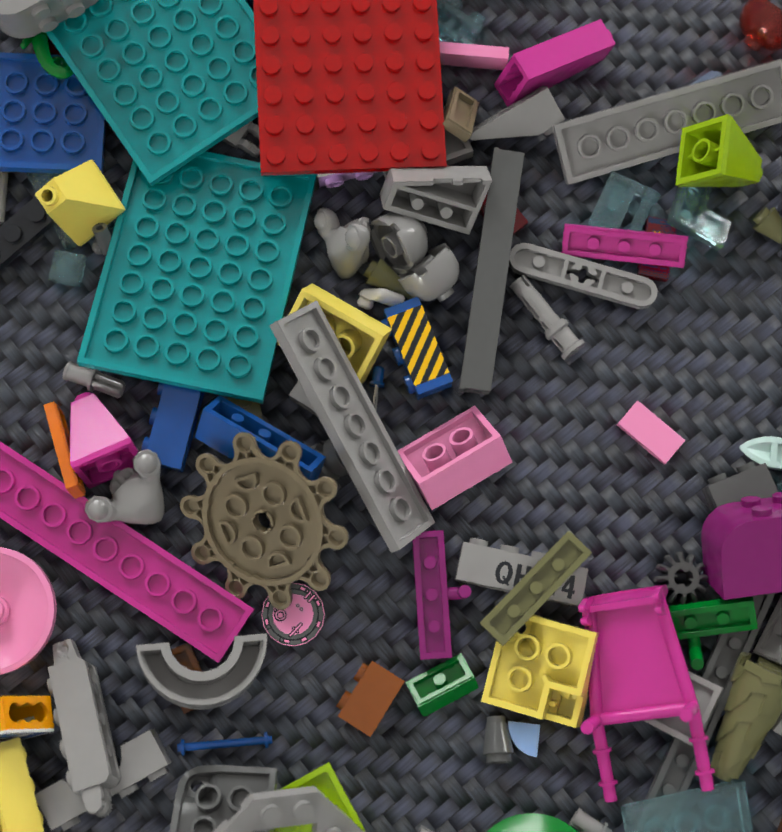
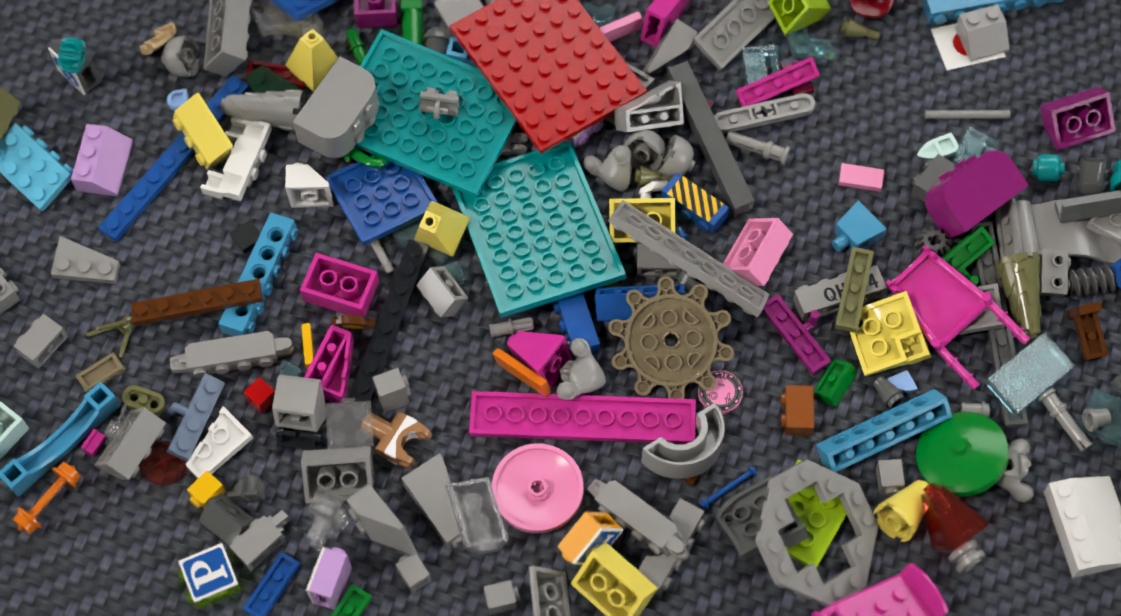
camera: 25 degrees left, 15 degrees down
(36, 286) = (442, 291): none -> light grey brick
(102, 239) = (468, 246): dark grey arm -> none
(171, 38) = (439, 103): none -> light grey hips
(457, 791) = (884, 430): none -> dark azure brick
(460, 114) = (635, 62): dark tan tile -> none
(598, 502) = (858, 229): none -> dark azure torso

